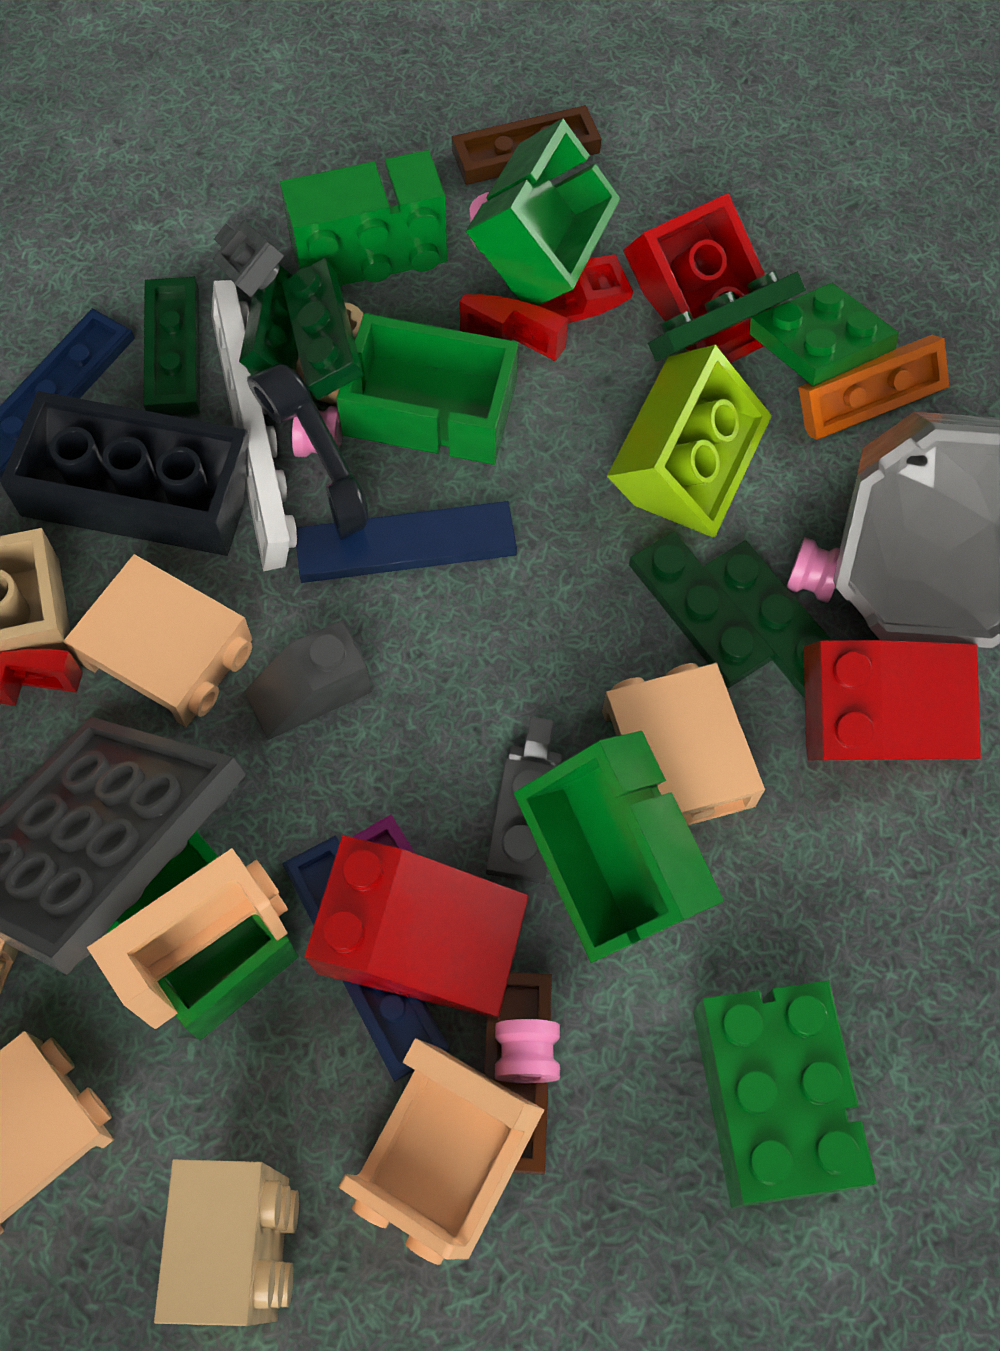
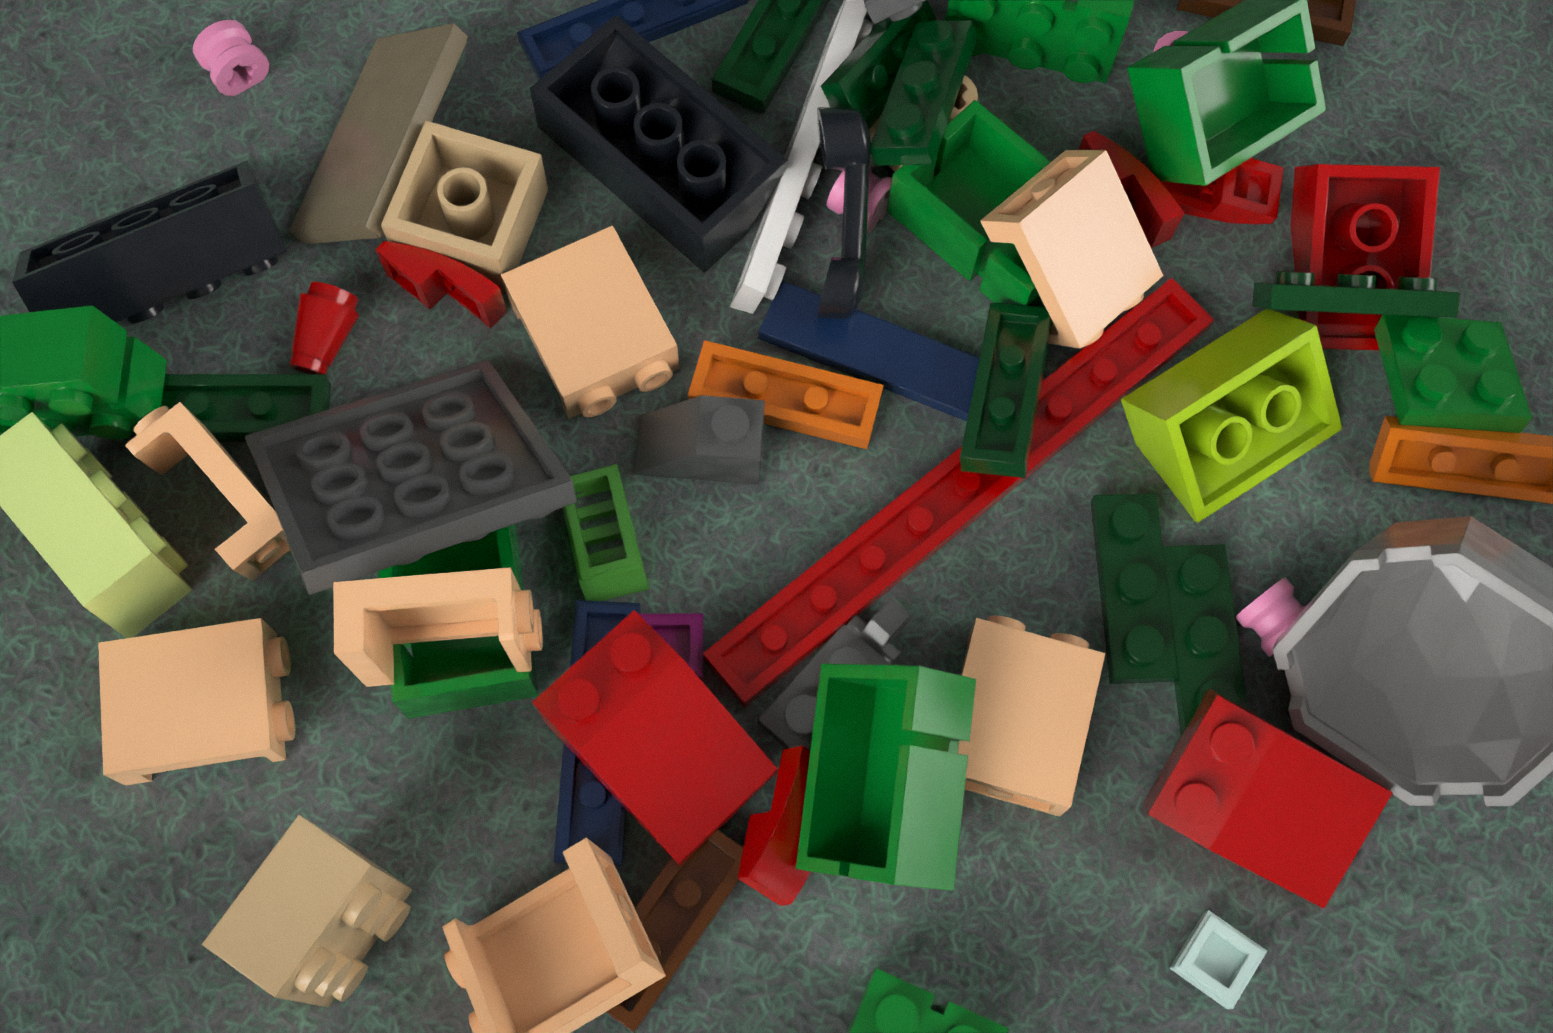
camera: 30 degrees right, 5 degrees up
(297, 823) = (613, 570): none -> bright green slope
(365, 605) = (794, 394): none -> orange plate
(508, 377) = (1078, 244): none -> light nougat panel
(521, 513) = (1006, 390): none -> dark green plate
(523, 624) = (949, 500): none -> red plate
(527, 1051) = (682, 912): bright pink wheel -> none
(558, 947) = (774, 835): none -> red slope
(934, 840) = (1218, 959): none -> light aqua tile

